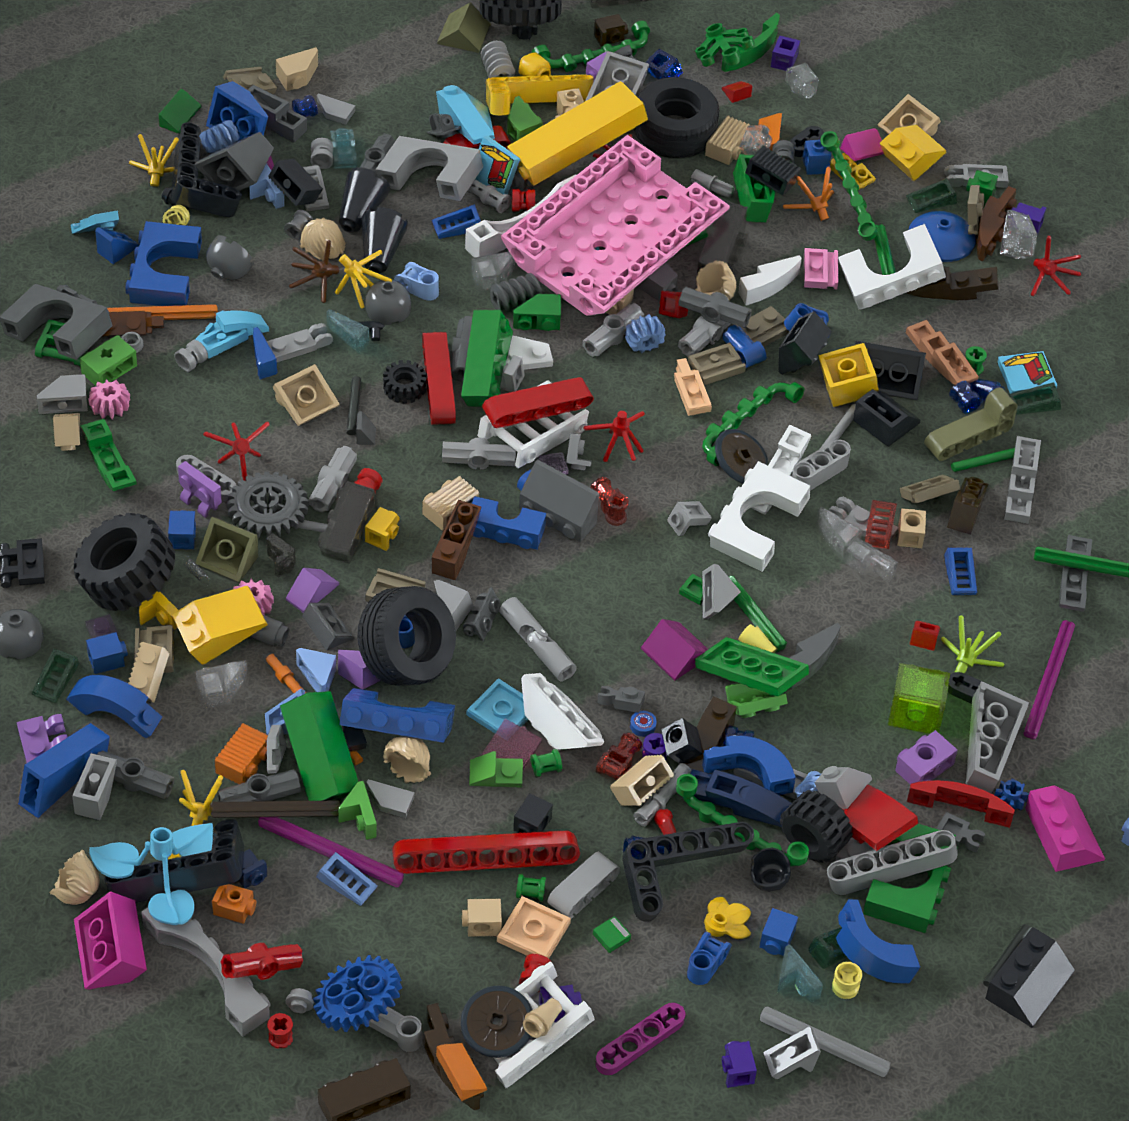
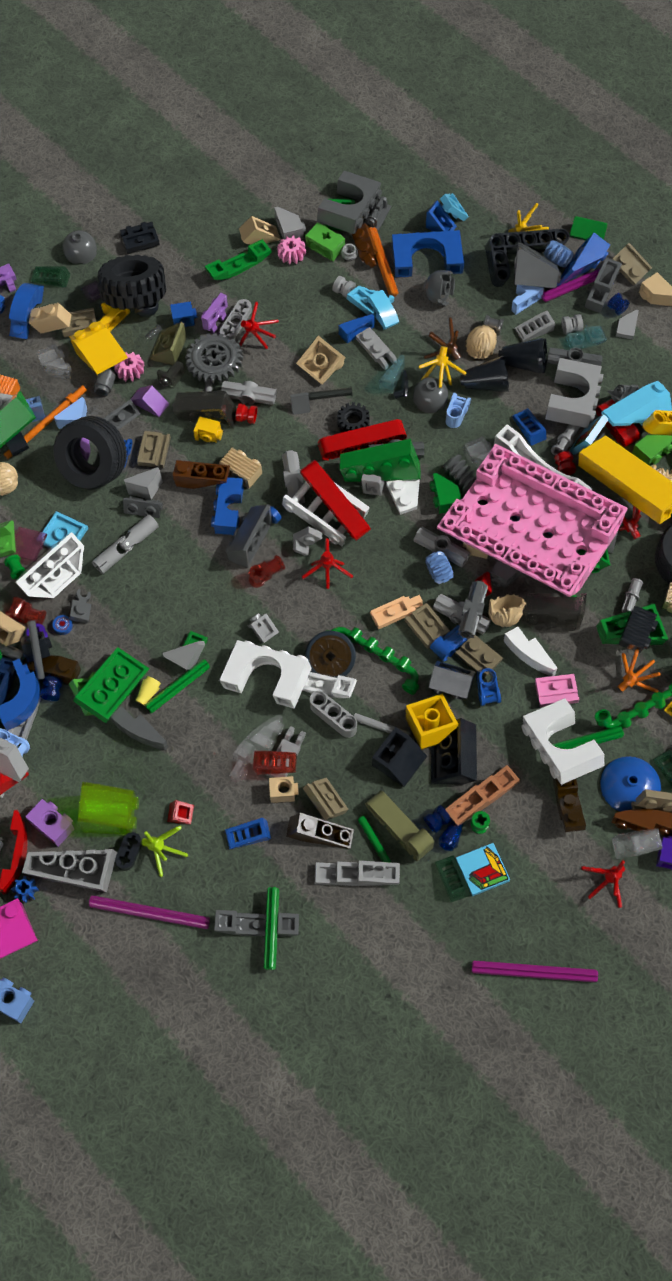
camera: 85 degrees right, 15 degrees up
(106, 652) = (69, 296): blue brick -> none
(179, 215) = (473, 249): light yellow wheel -> none
(295, 182) = (525, 309): black brick -> none
(363, 711) = (19, 480): blue arch -> none
(556, 461) = (291, 527): clear purple plate -> none
(673, 648) = (135, 636): magenta slope -> none
(694, 728) = (36, 649): none -> dark grey bar

